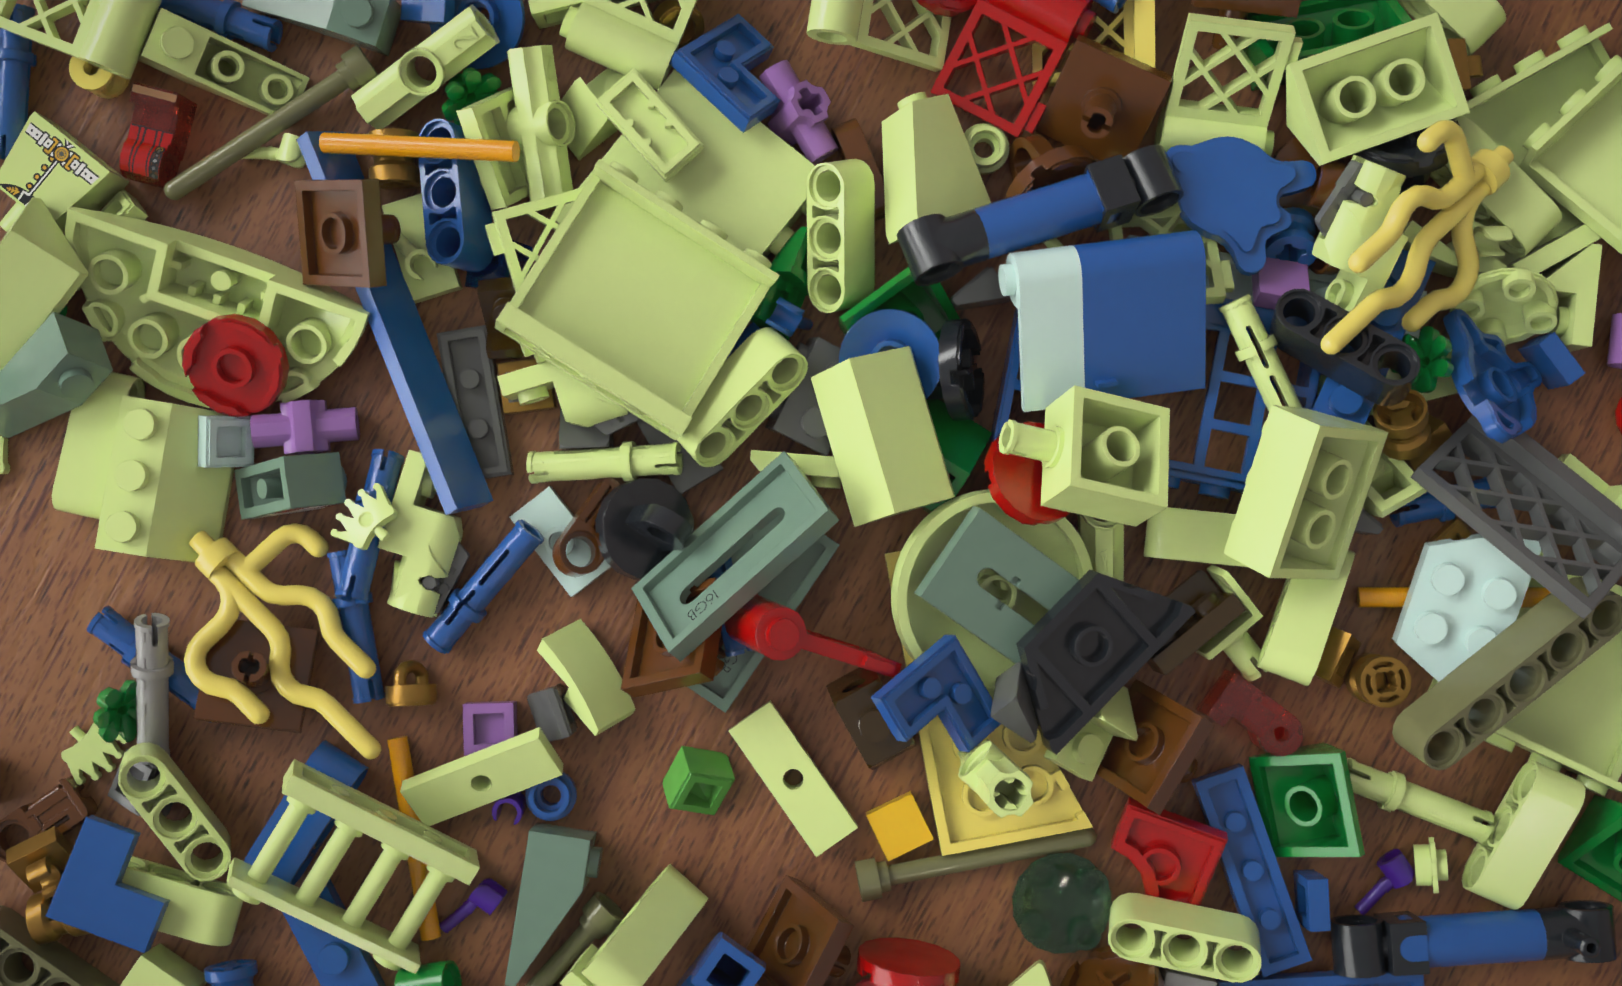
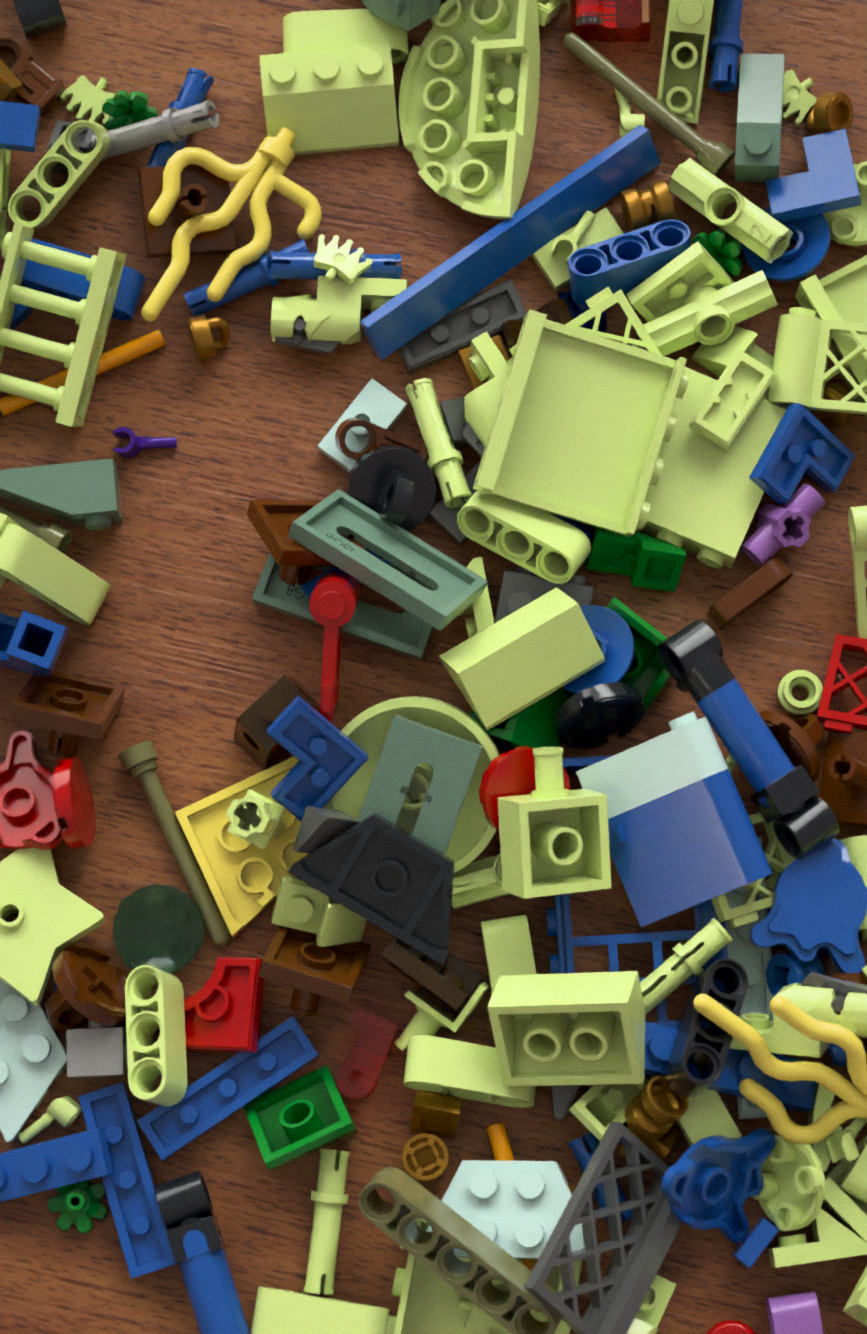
camera: 80 degrees right, 10 degrees down
(224, 441) = (374, 135): light aqua tile -> none
(235, 365) = (439, 126): red tile -> none
(290, 485) = (351, 196): sand green slope -> none
(305, 427) = (403, 195): medium lavender axle -> none
(343, 232) = (571, 179): reddish brown tile -> none
(420, 147) = (660, 221): light orange bar -> none
(469, 603) = (291, 364): blue pin -> none
(482, 777) = (147, 411): yellowish green tile -> none
(485, 896) = (46, 444): dark purple hand -> none
(488, 724) = (189, 410): medium lavender tile -> none
(552, 712) = (215, 457): dark grey slope -> none
(552, 811) = (142, 461): blue plate -> none
(589, 674) = (254, 475): yellowish green slope -> none
(698, 780) = (187, 592): bright green slope -> none
(788, 318) = (603, 559): blue hand -> none
(812, 802) = (228, 648): yellowish green tile -> none
(840, 234) = (687, 583): yellowish green beam -> none
(899, 826) = (190, 773): yellow tile -> none
(927, 163) = (771, 642): yellowish green slope -> none
(980, 292) = (667, 710): dark grey slope -> none
(1276, 279) = (760, 972): medium lavender tile -> none
(1312, 900) = (214, 1148): blue tile -> none
(1396, 873) = (259, 1222): dark purple hand -> none
(1430, 865) = (272, 1248): yellowish green plate -> none
(1433, 353) = (718, 1112): green plant -> none

